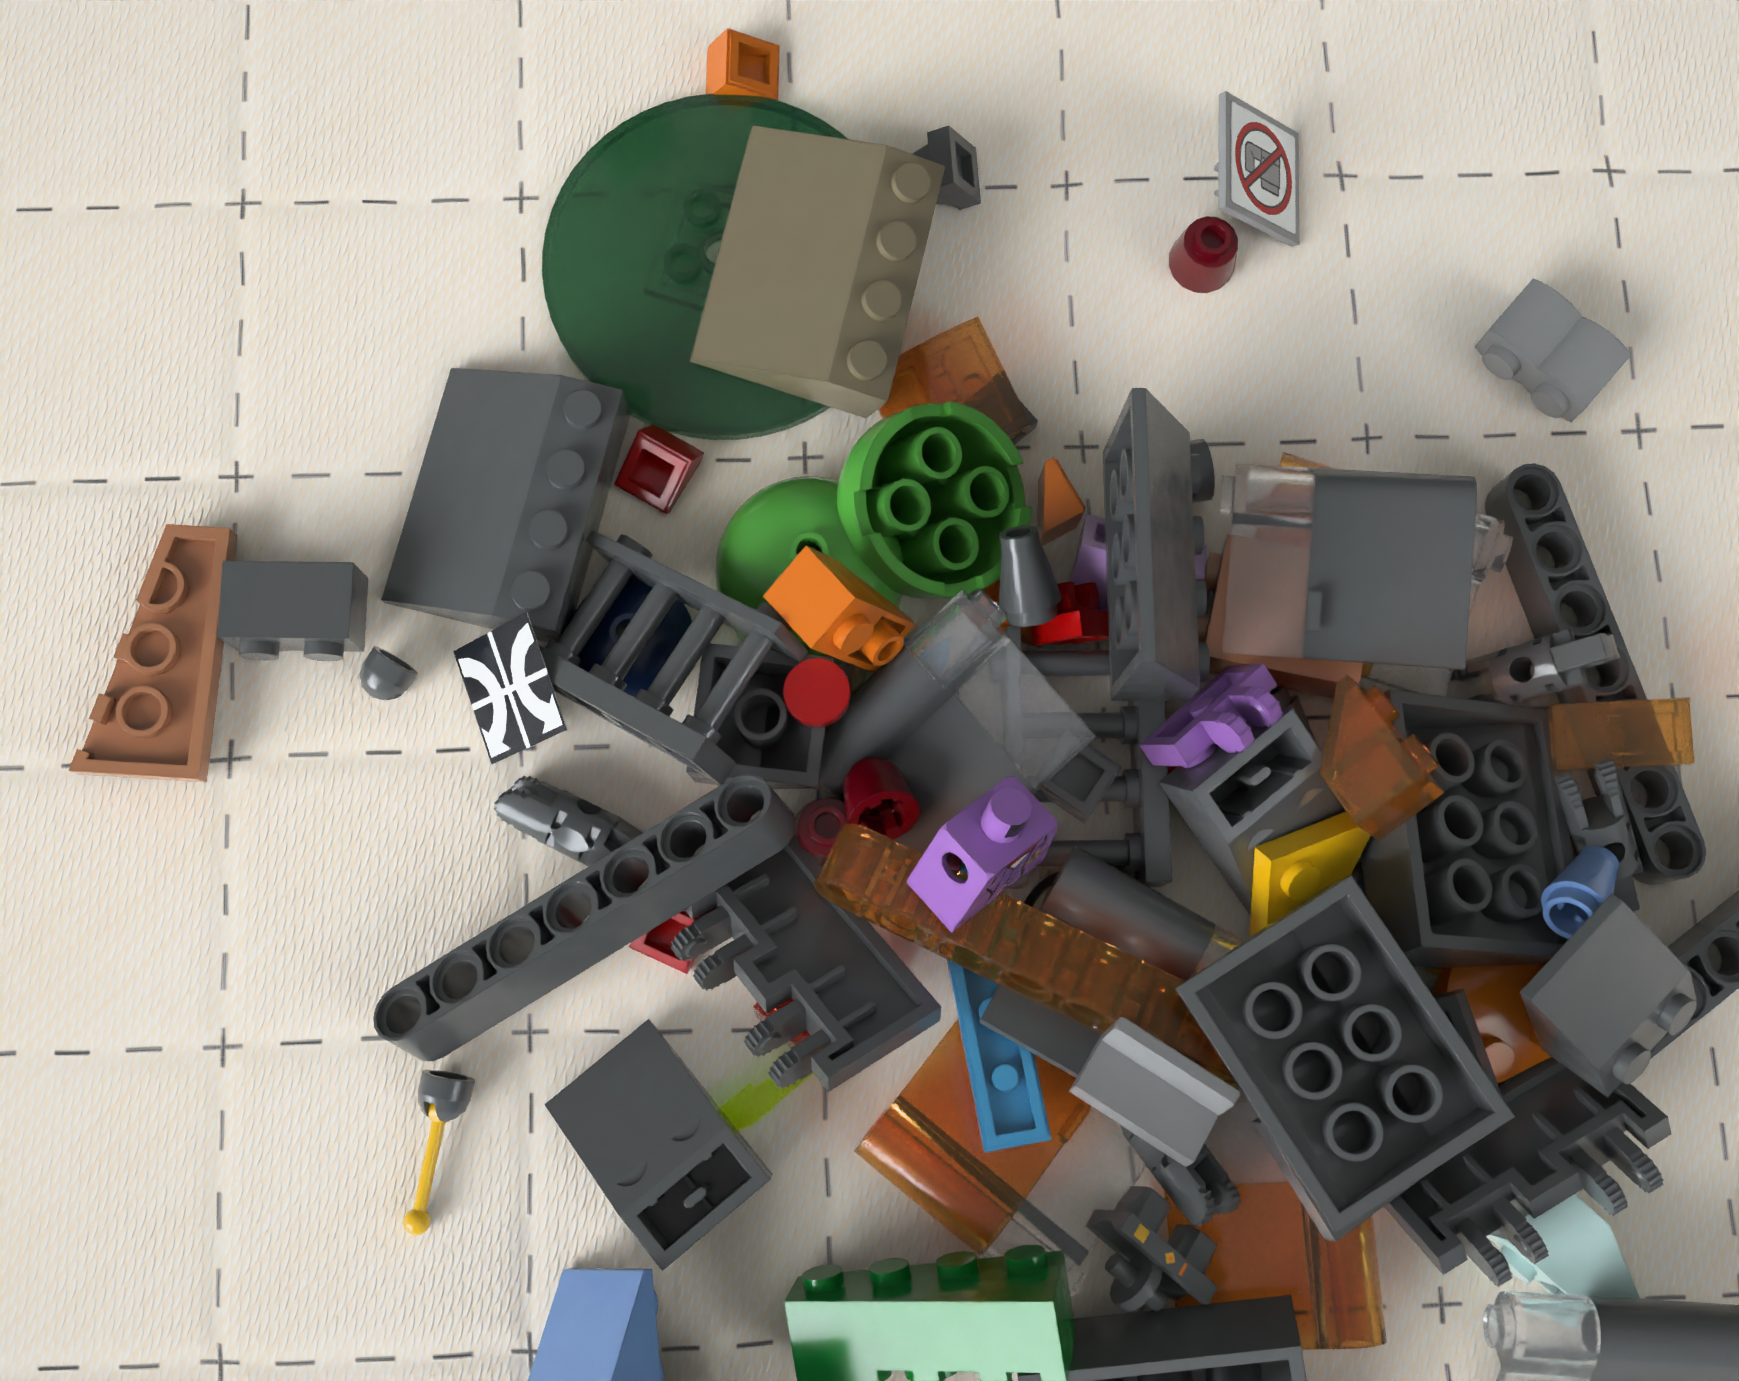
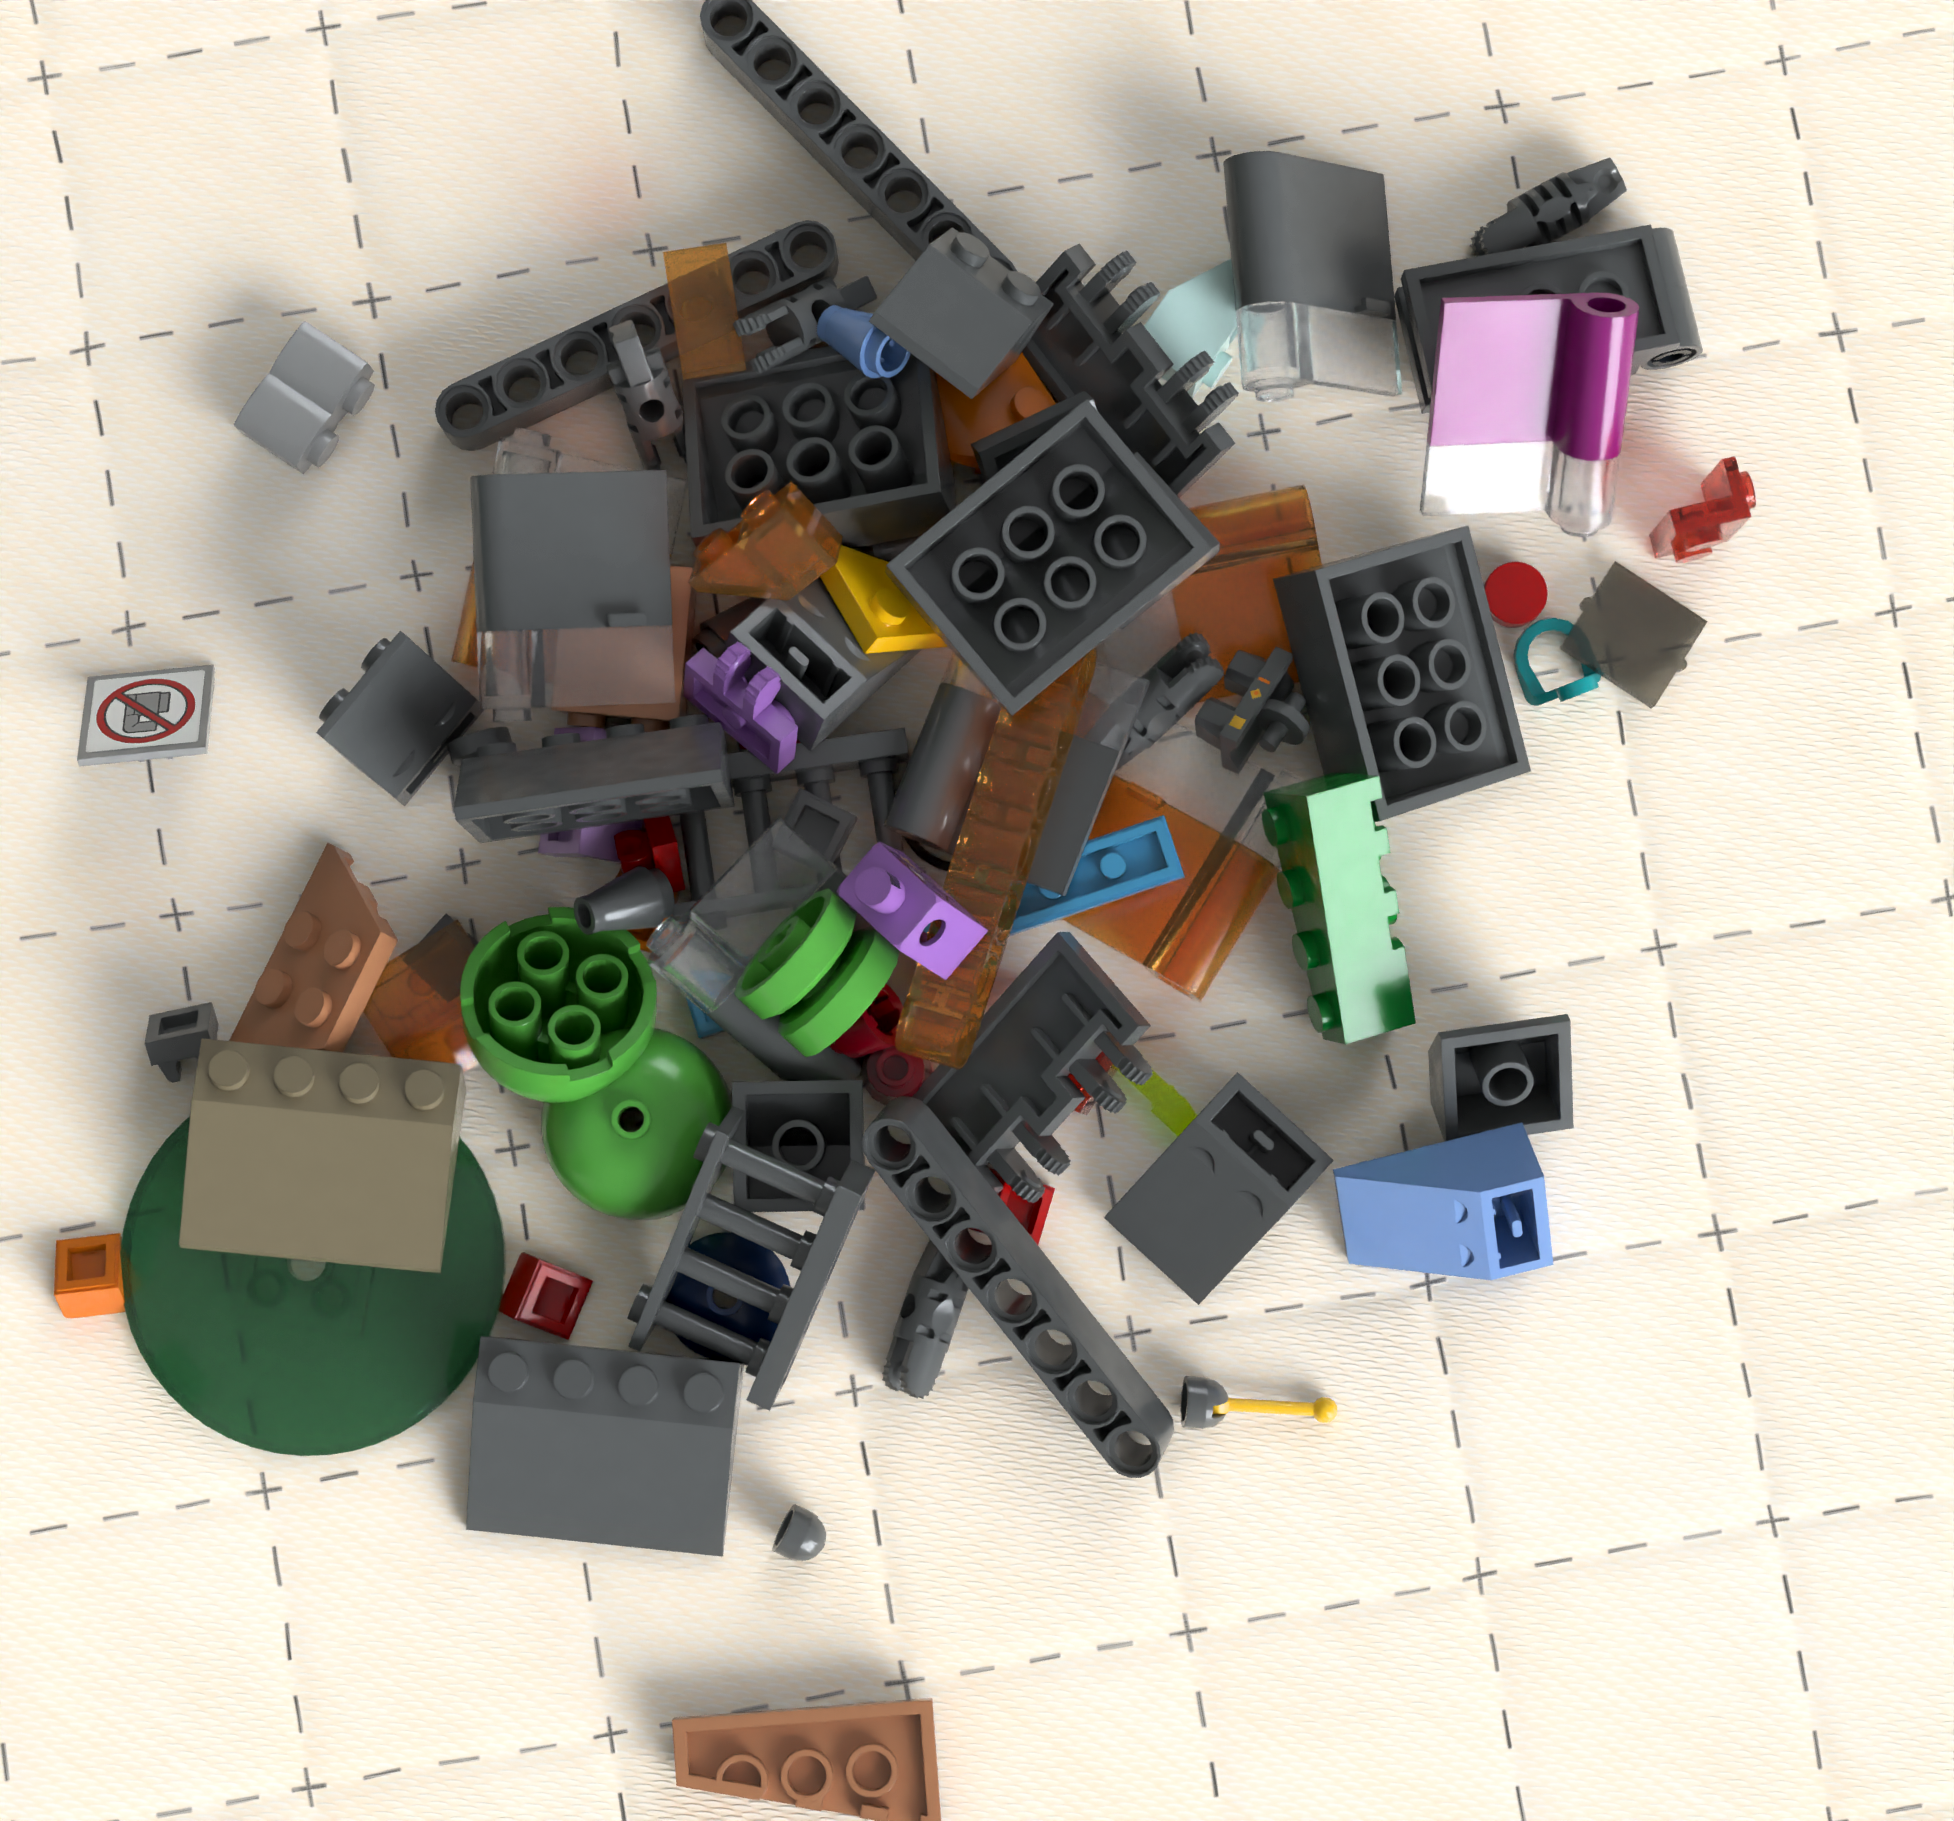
camera: 90 degrees left, 5 degrees up
(293, 608) = (748, 1636): dark grey brick -> none
(510, 689) = (801, 1403): sticker -> none
(817, 692) = (771, 1091): red tile -> none
(838, 611) = (691, 1079): orange slope -> none
(928, 749) = (817, 973): none -> bright green wheel
(1001, 297) = (321, 964): none -> nougat wing
(1058, 503) = (533, 883): orange slope -> none
(1153, 1090) = (1107, 726): light grey panel -> none
(1204, 255) = (242, 763): dark red hat -> none
(1239, 380) = (398, 717): none -> dark grey slope

